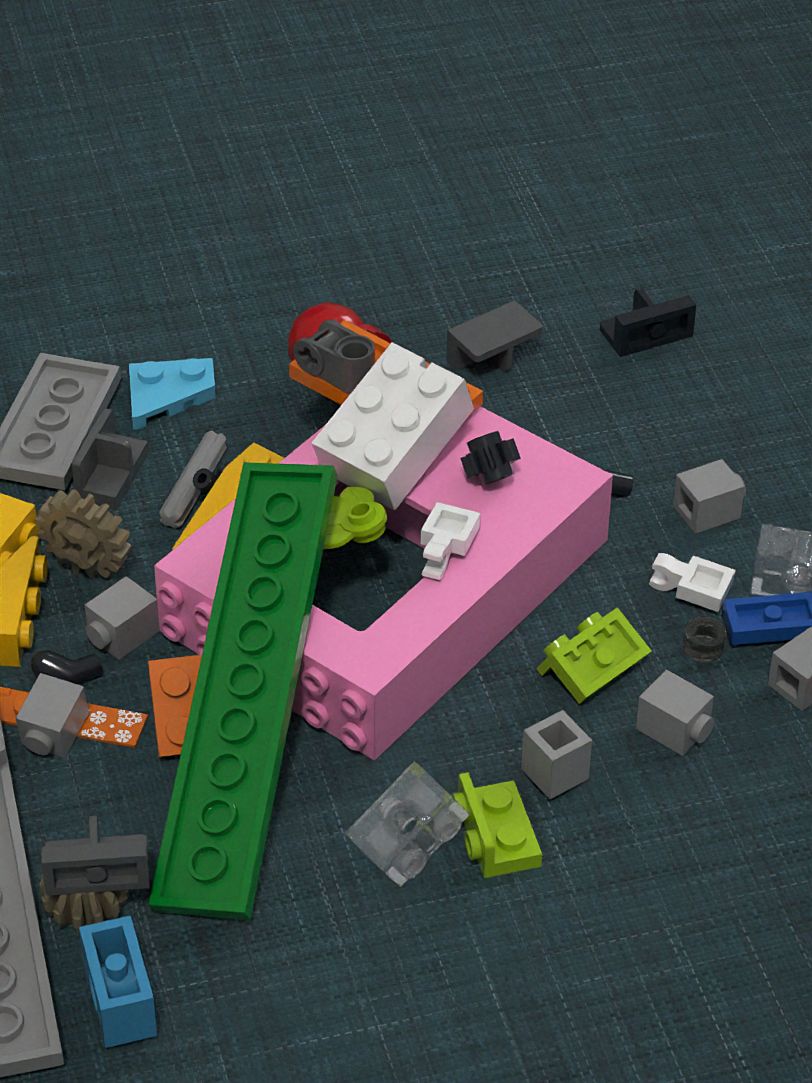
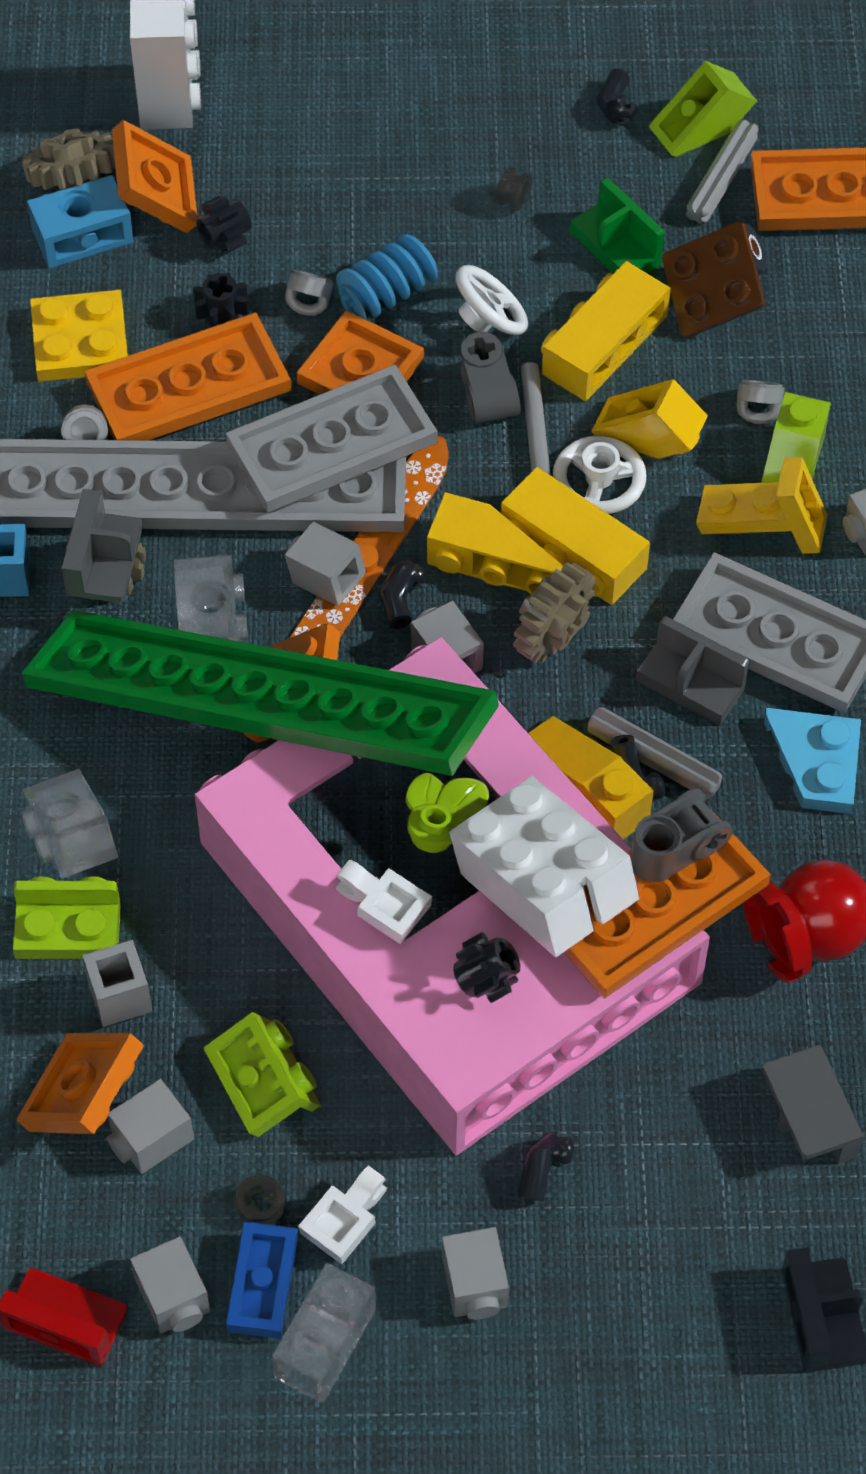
camera: 105 degrees right, 15 degrees up
(124, 792) = (208, 585): none -> clear brick
(662, 756) = (80, 1083): none -> orange plate

